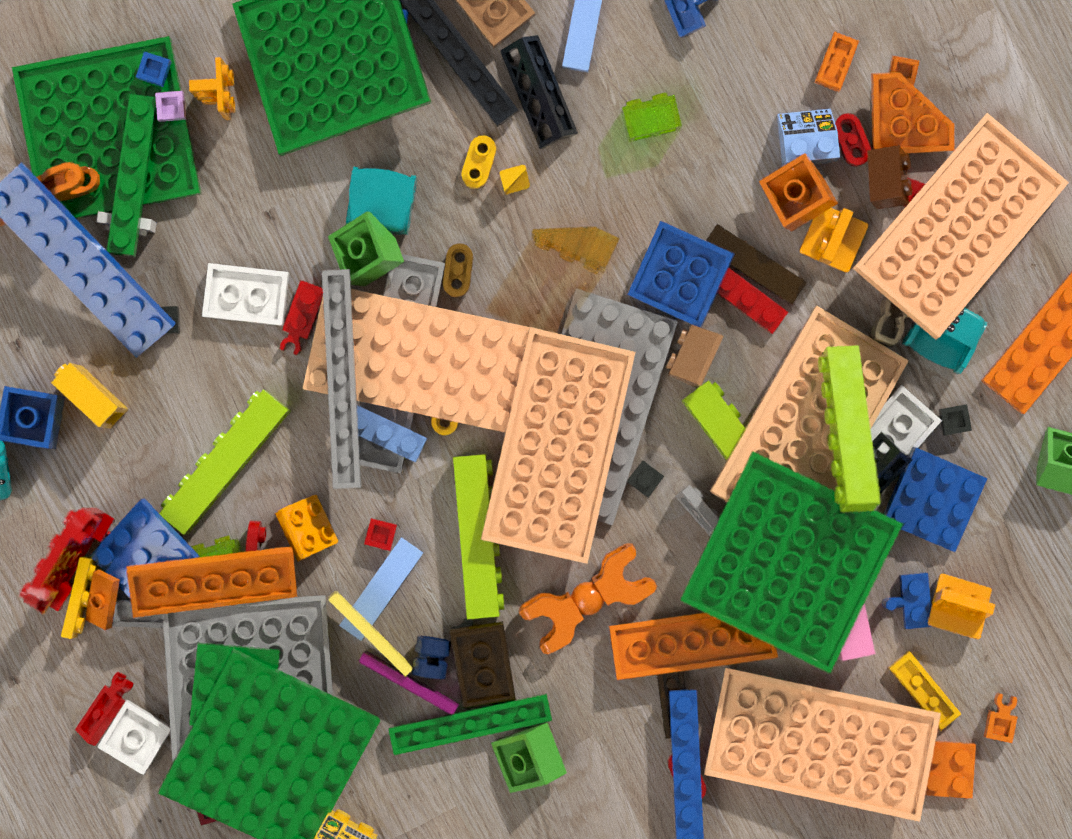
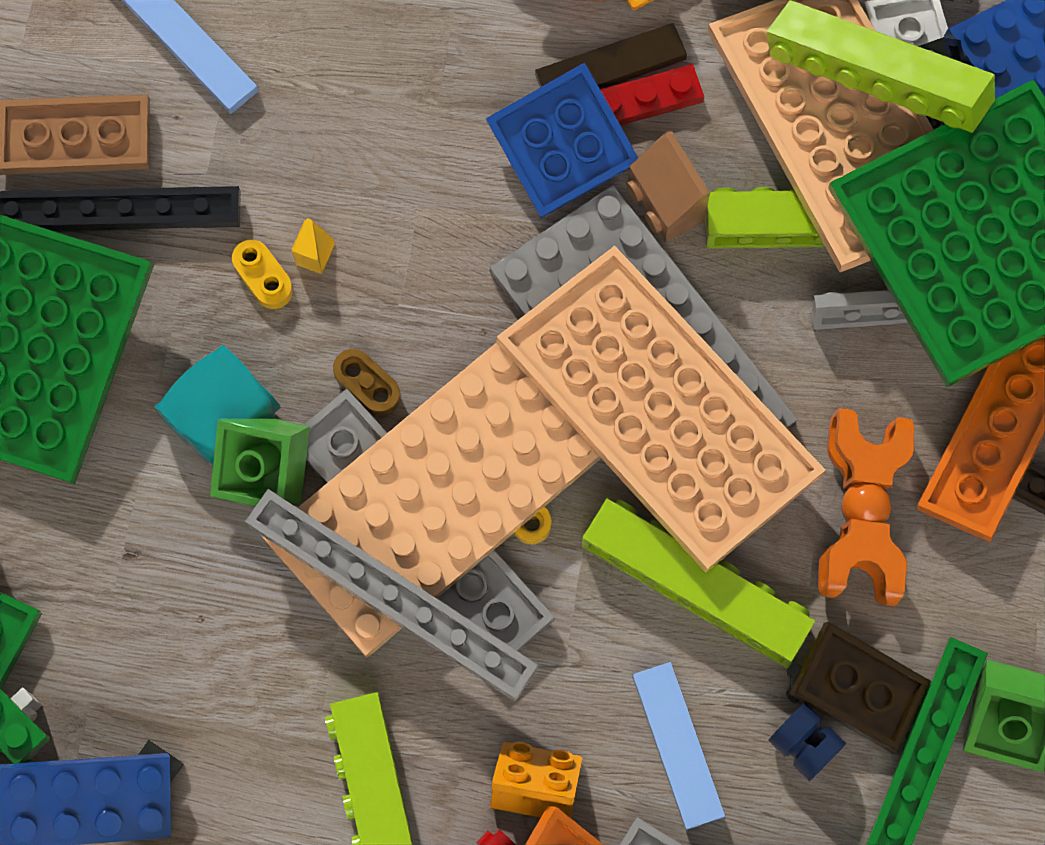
camera: 55 degrees left, 15 degrees down
(245, 294) = (200, 646): white plate -> none
(302, 315) = (277, 599): red plate -> none
(370, 633) = (724, 792): light yellow tile -> none
(380, 534) = (610, 696): red plate -> none
(389, 434) = (503, 591): medium blue plate -> none
(408, 682) = (819, 794): magenta tile -> none
(542, 88) = (238, 141): black fence -> none
(584, 244) = (447, 219): clear yellow slope -> none
(645, 478) = (769, 347): pearl dark grey plate -> none
(651, 117) = (362, 56): clear neon green brick -> none

